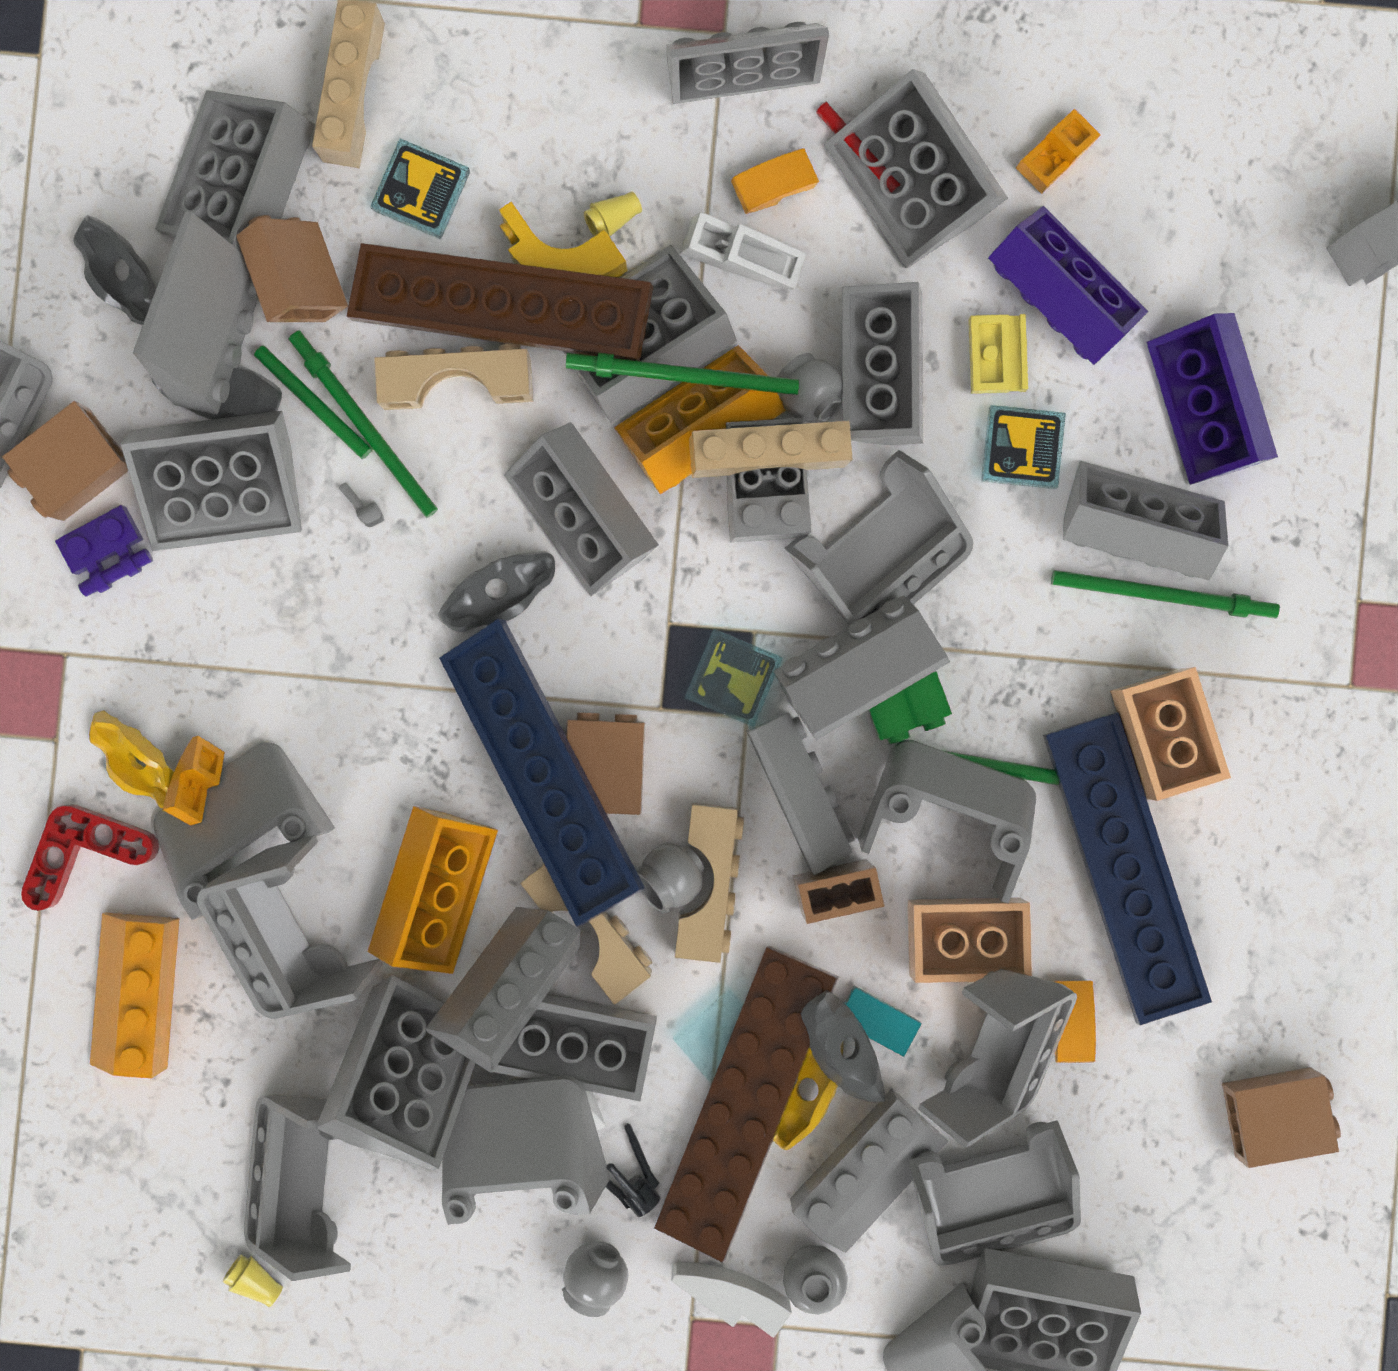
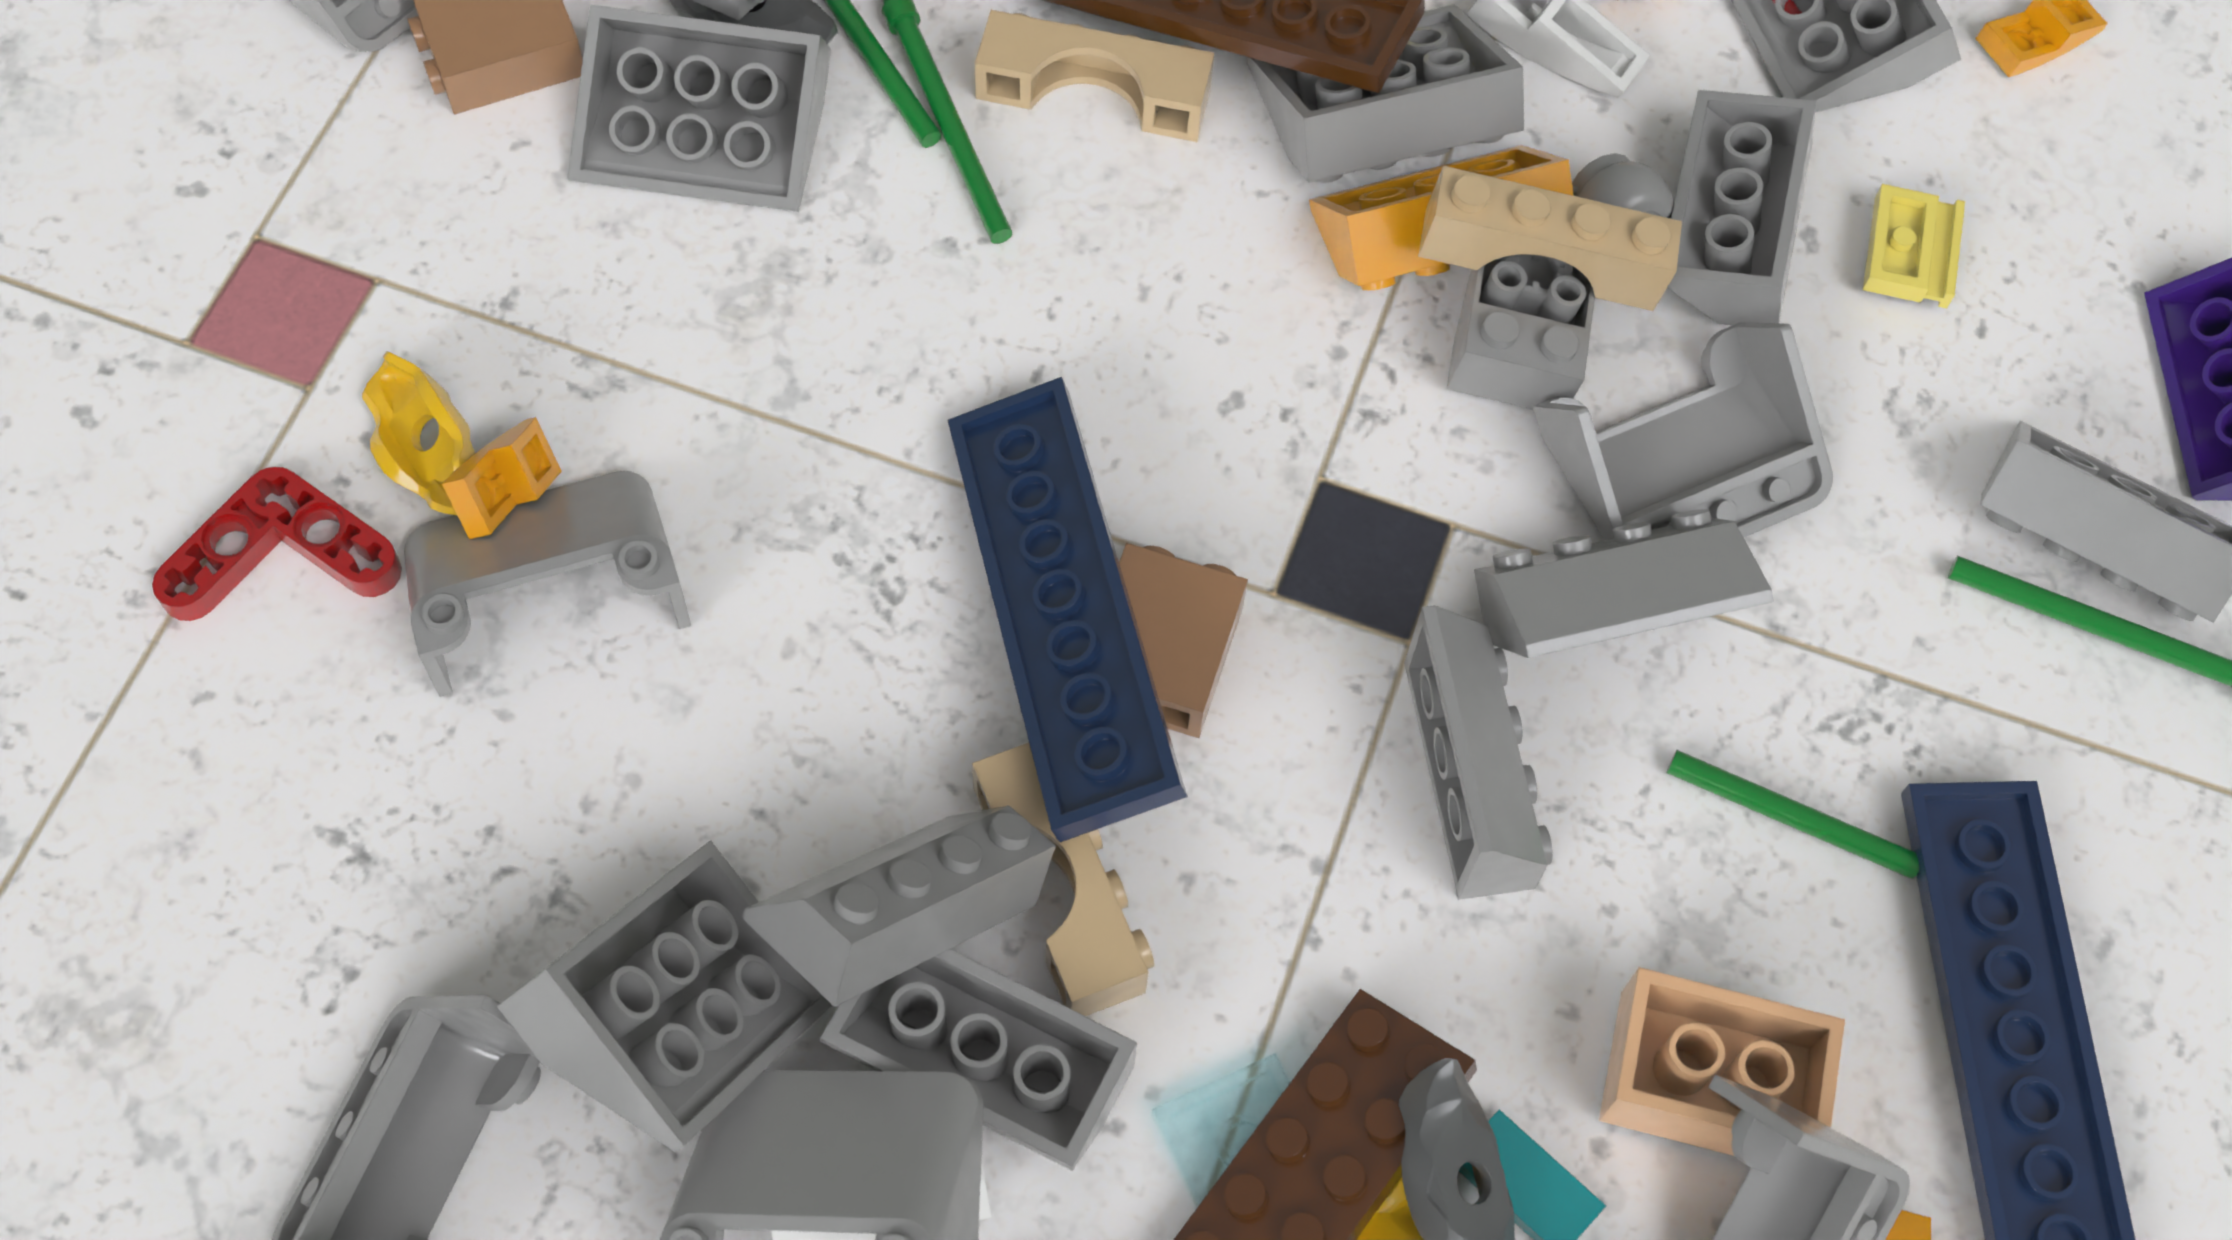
camera: 10 degrees right, 25 degrees down
(99, 541) = (493, 148): dark purple plate -> none
(134, 994) = (265, 777): light orange slope -> none
(267, 944) = (518, 713): light grey windscreen -> none
(369, 514) = (907, 211): light grey hand -> none
(432, 891) = (819, 750): light orange slope -> none
(472, 607) = (1114, 338): dark grey piece -> none
(580, 508) = (1230, 280): light grey slope -> none
(606, 365) = (1331, 80): green bar -> none
(671, 876) = (1224, 828): light grey piece -> none
(702, 930) = (1255, 930): tan arch -> none
(733, 677) = (1398, 568): clear light blue tile -> none
(838, 891) = (1512, 905): medium nougat brick -> none
(914, 706) = (1682, 681): green brick -> none
(929, 774) = (1825, 860): light grey windscreen -> none
(1023, 447) = (1933, 378): tile -> none
(1067, 285) = (2031, 186): dark purple slope -> none
(1171, 734) = (2126, 831): light nougat brick -> none

